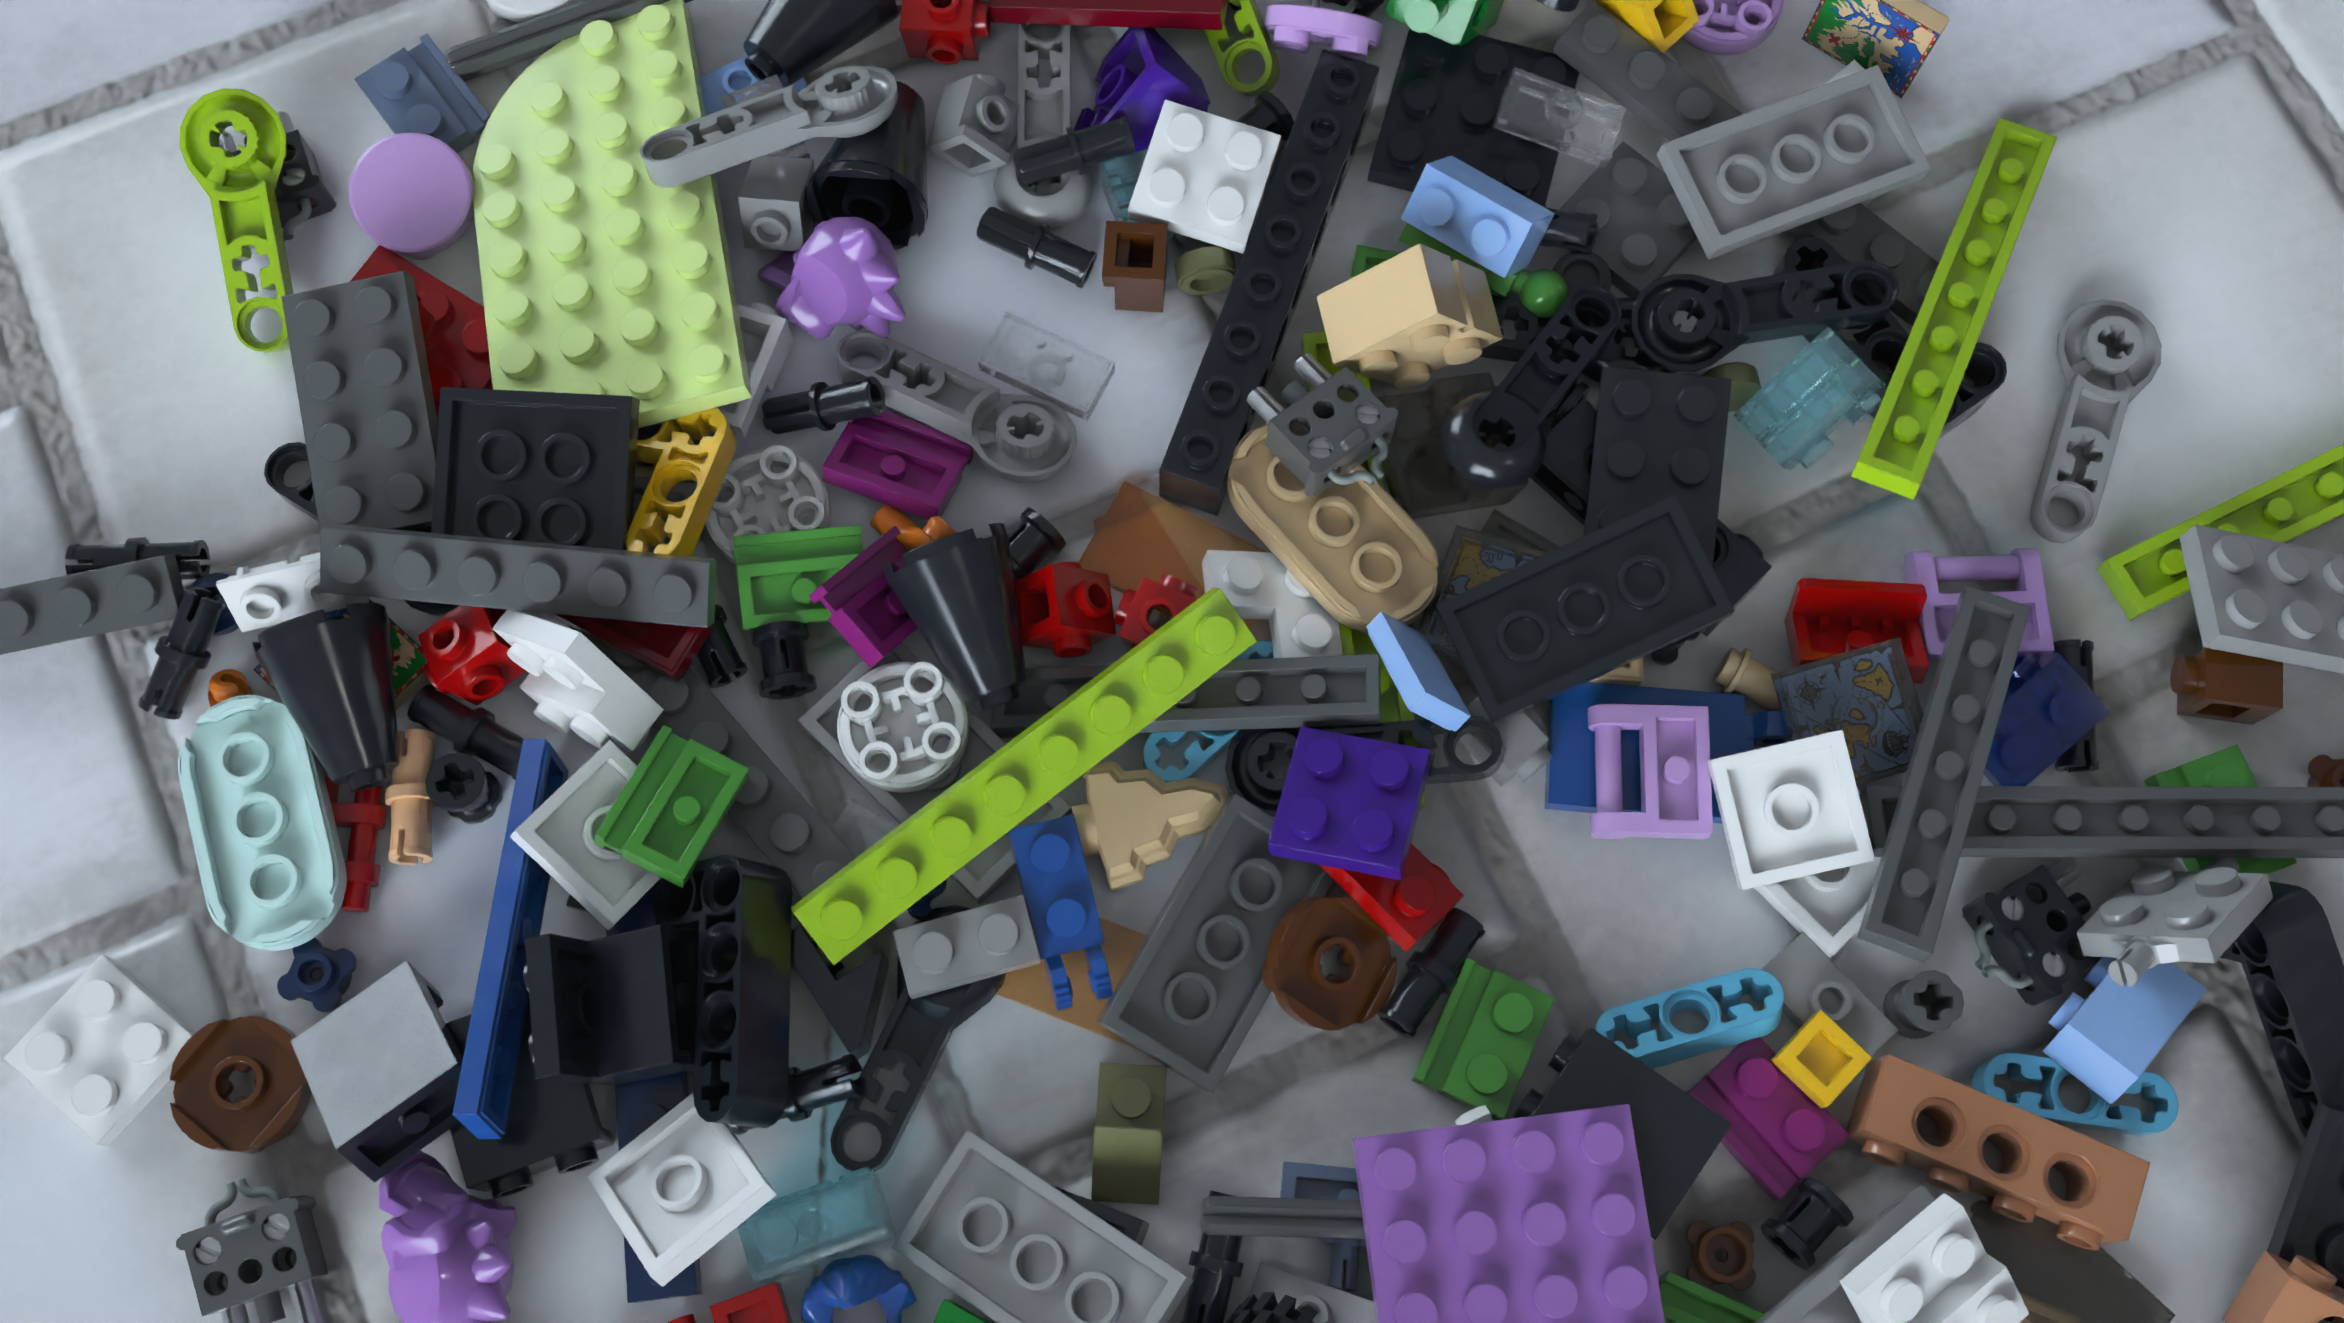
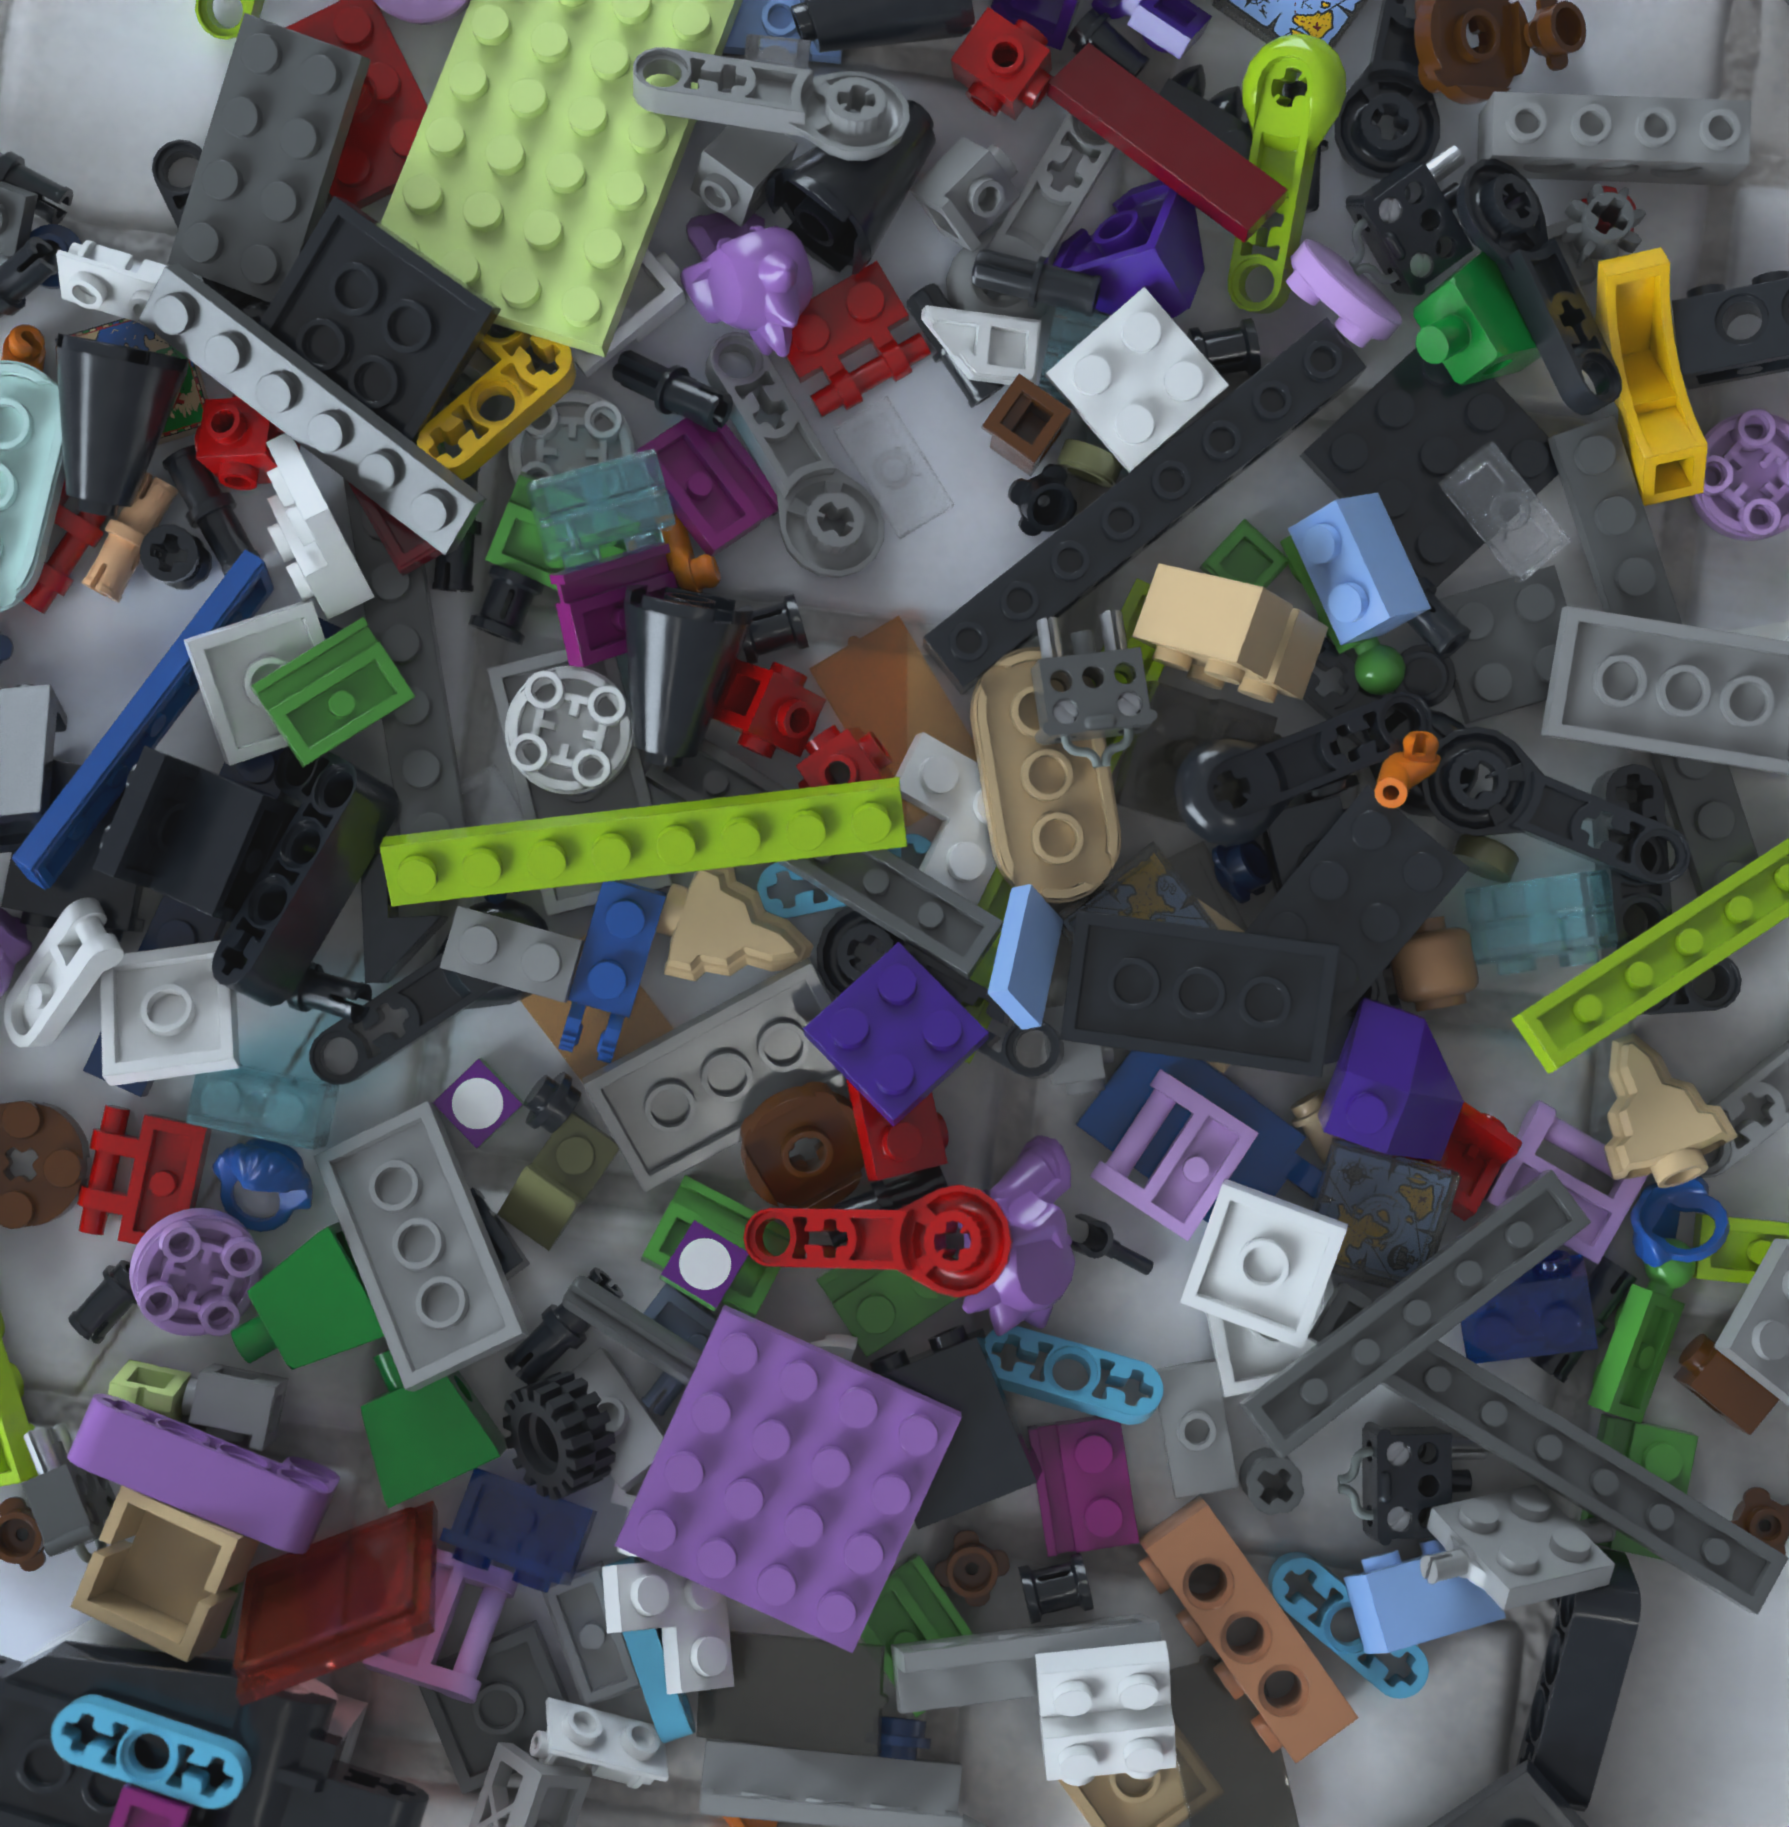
camera: 30 degrees right, 15 degrees up
(558, 1218) = (60, 974): none -> white plate
(821, 519) = (601, 508): none -> clear light blue brick
(935, 279) = (843, 321): none -> red plate
(1014, 1107) = (478, 1103): none -> tile
(1062, 223) = (987, 344): none -> white tile
(1080, 1063) = (551, 1102): none -> black plate
(1200, 318) = (1054, 512): none -> black plate
(1308, 1100) = (728, 1220): none -> bright green plate
(1310, 1119) = (704, 1265): none -> tile
(1469, 978) = (899, 1239): none -> red beam
(1541, 510) = (1242, 869): none -> dark blue plate
(1569, 923) = (1041, 1250): none -> medium lavender head
(1624, 344) = (1407, 768): none -> orange arm
(1635, 890) = (1101, 1243): none -> black hand
(1755, 492) = (1435, 966): none -> medium nougat head
(1788, 596) = (1391, 1086): none -> dark purple slope
(1821, 1059) = (1154, 1472): yellow tile -> none
(2017, 503) = (1658, 1120): none -> tan rock
(2078, 553) = (1658, 1215): none -> blue piece
(2130, 685) = (1641, 1340): none -> bright green plate

